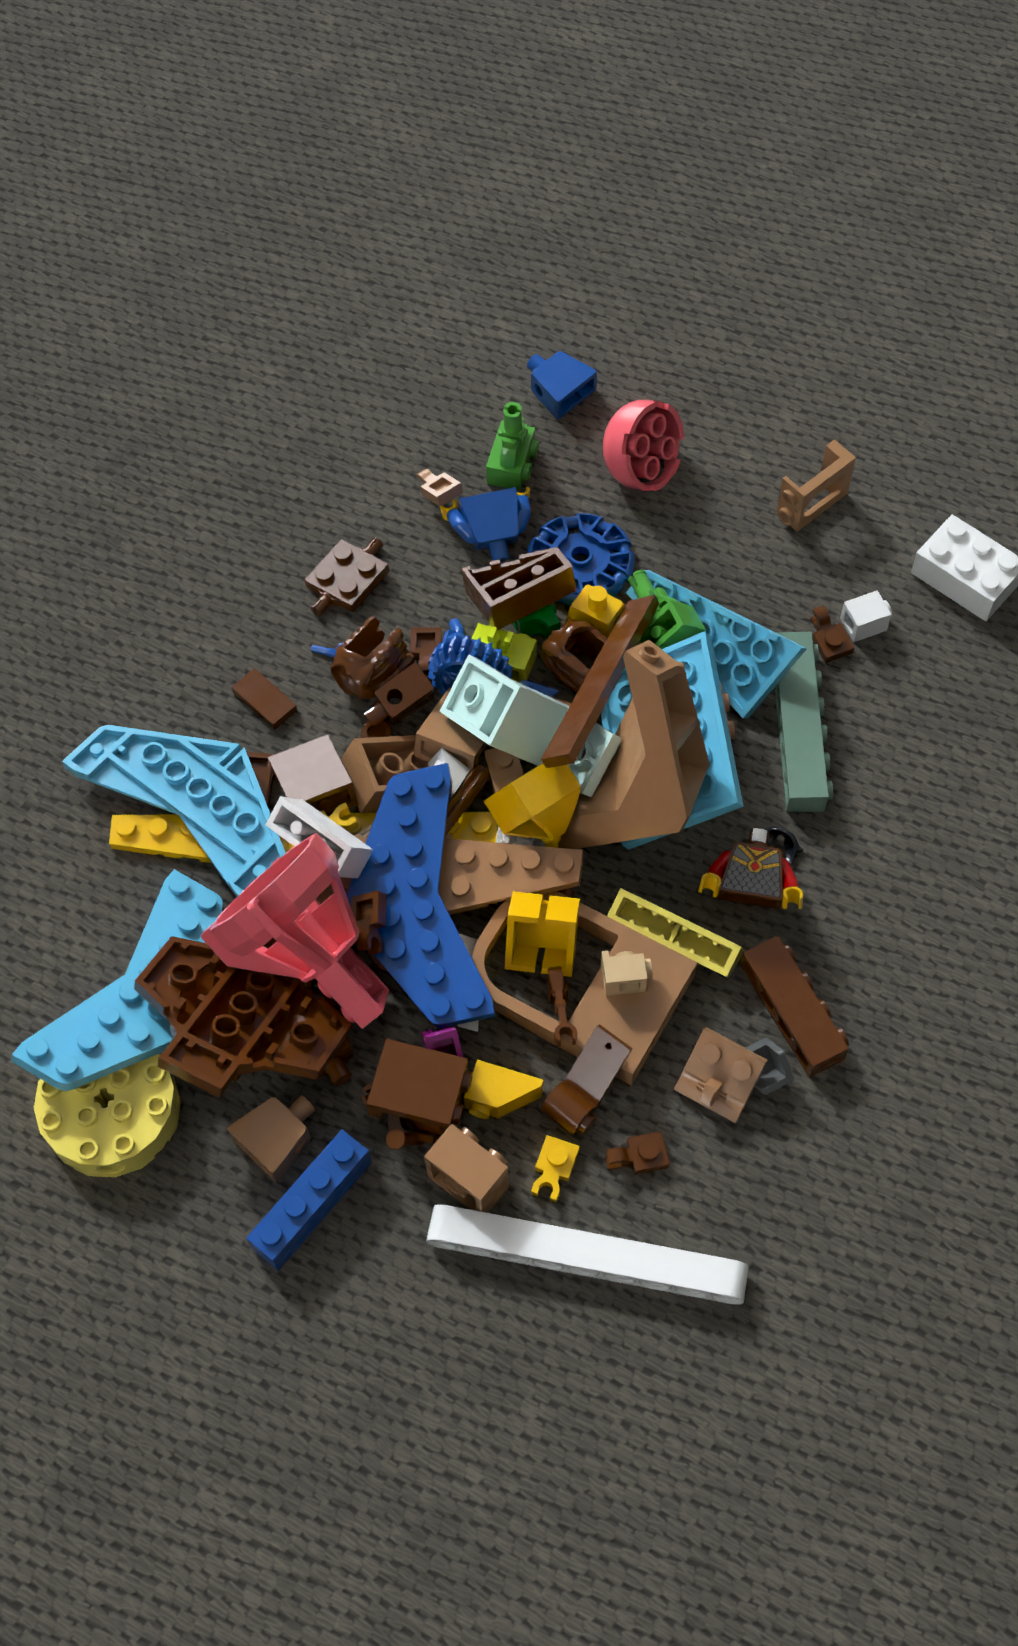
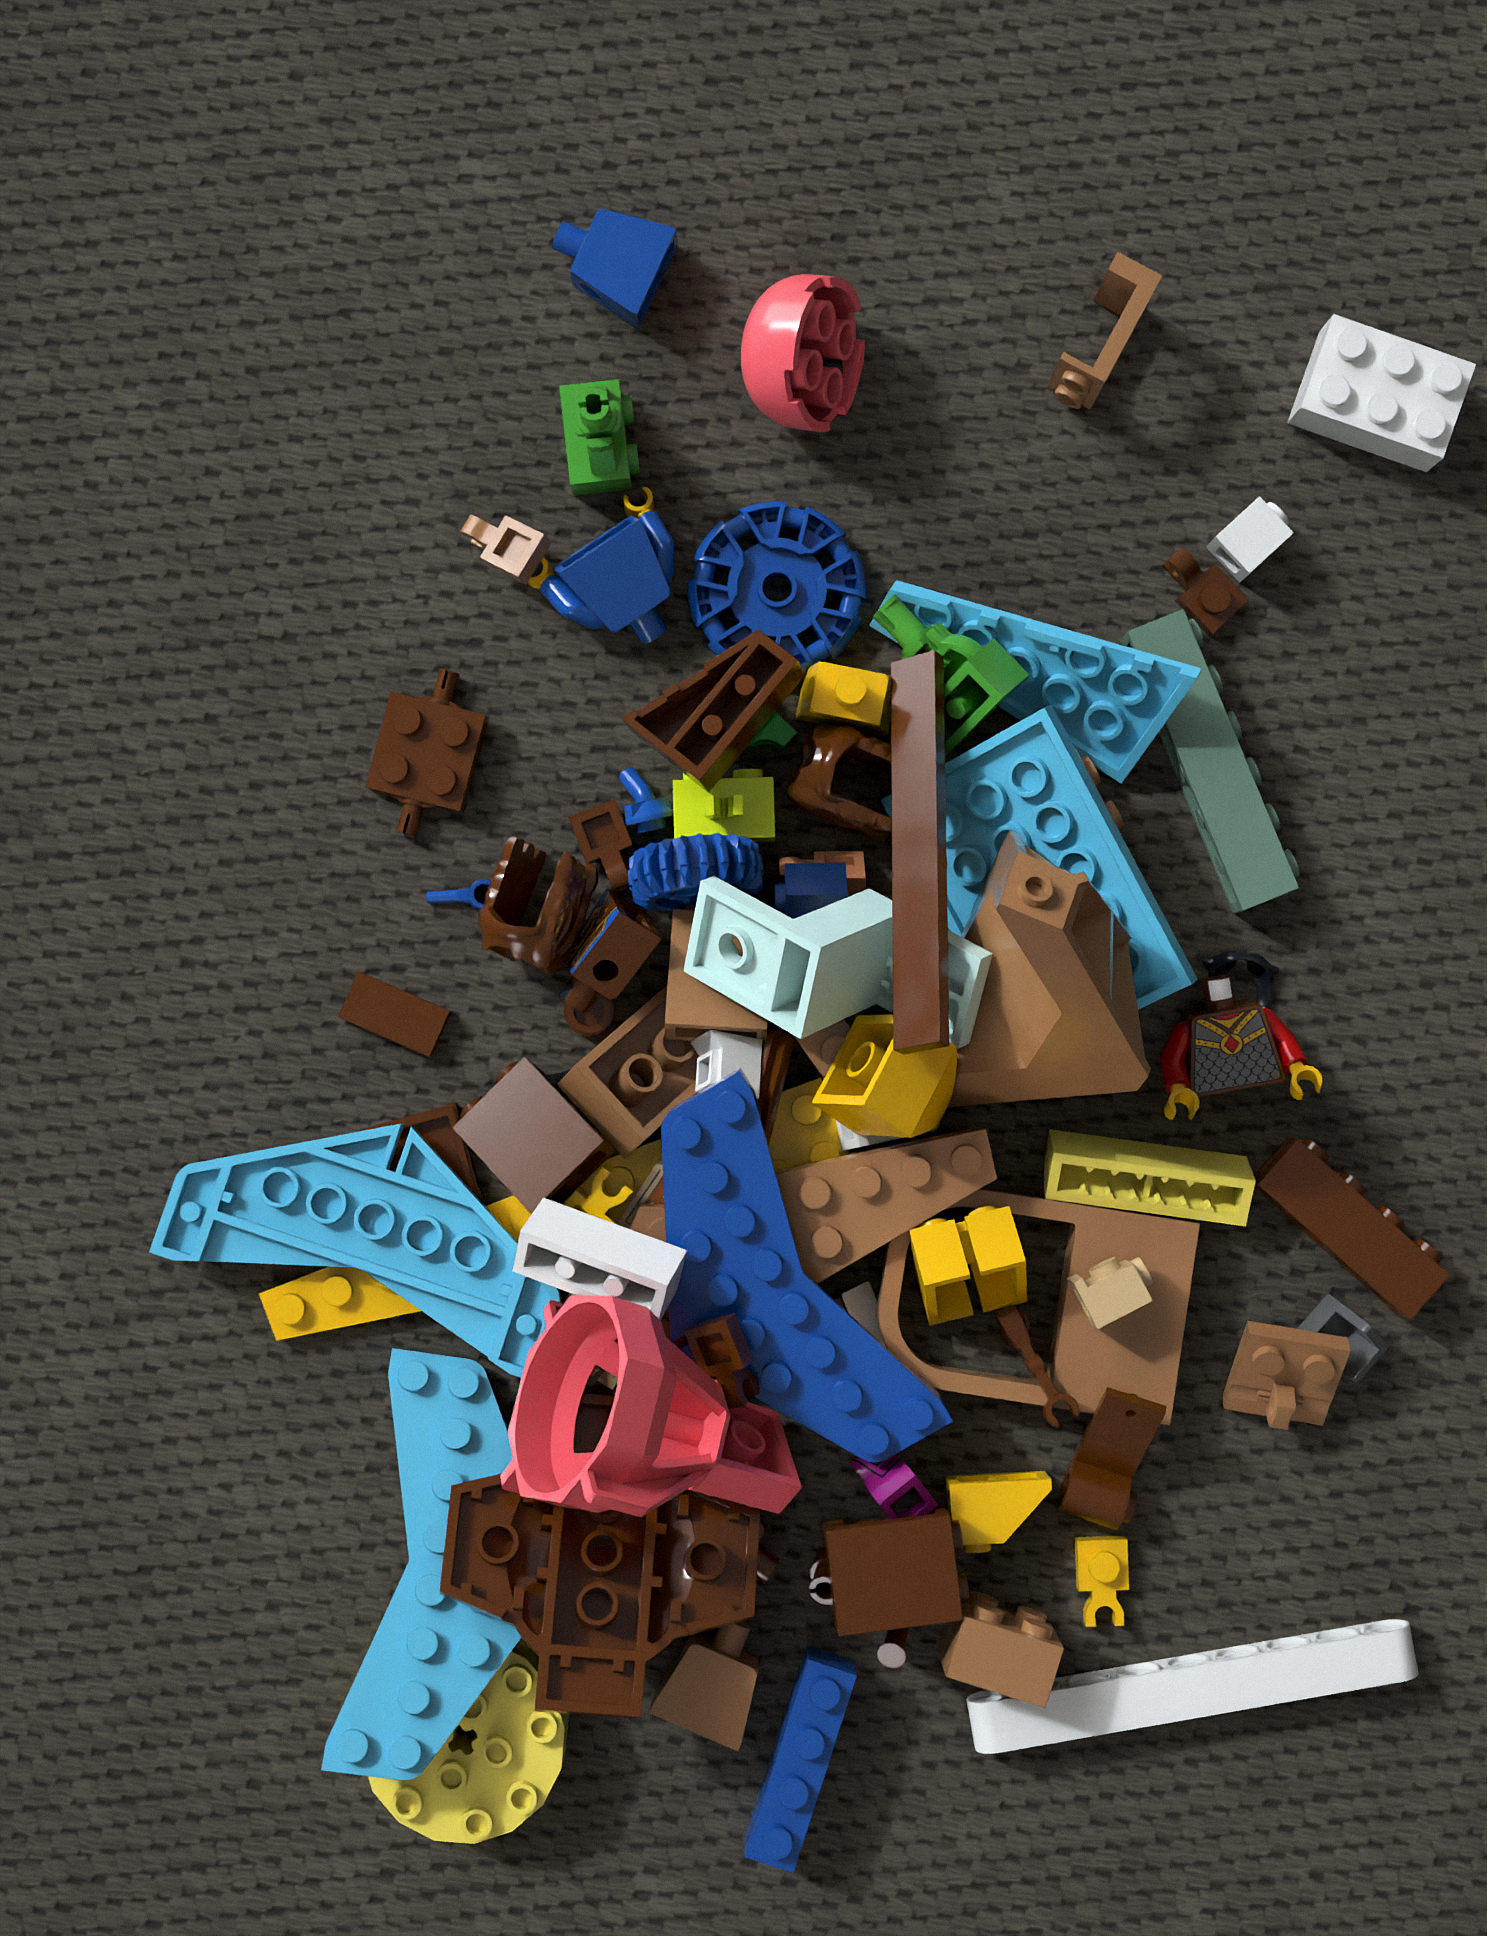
camera: 25 degrees left, 25 degrees up
(643, 1152) = (1215, 1512): reddish brown plate -> none

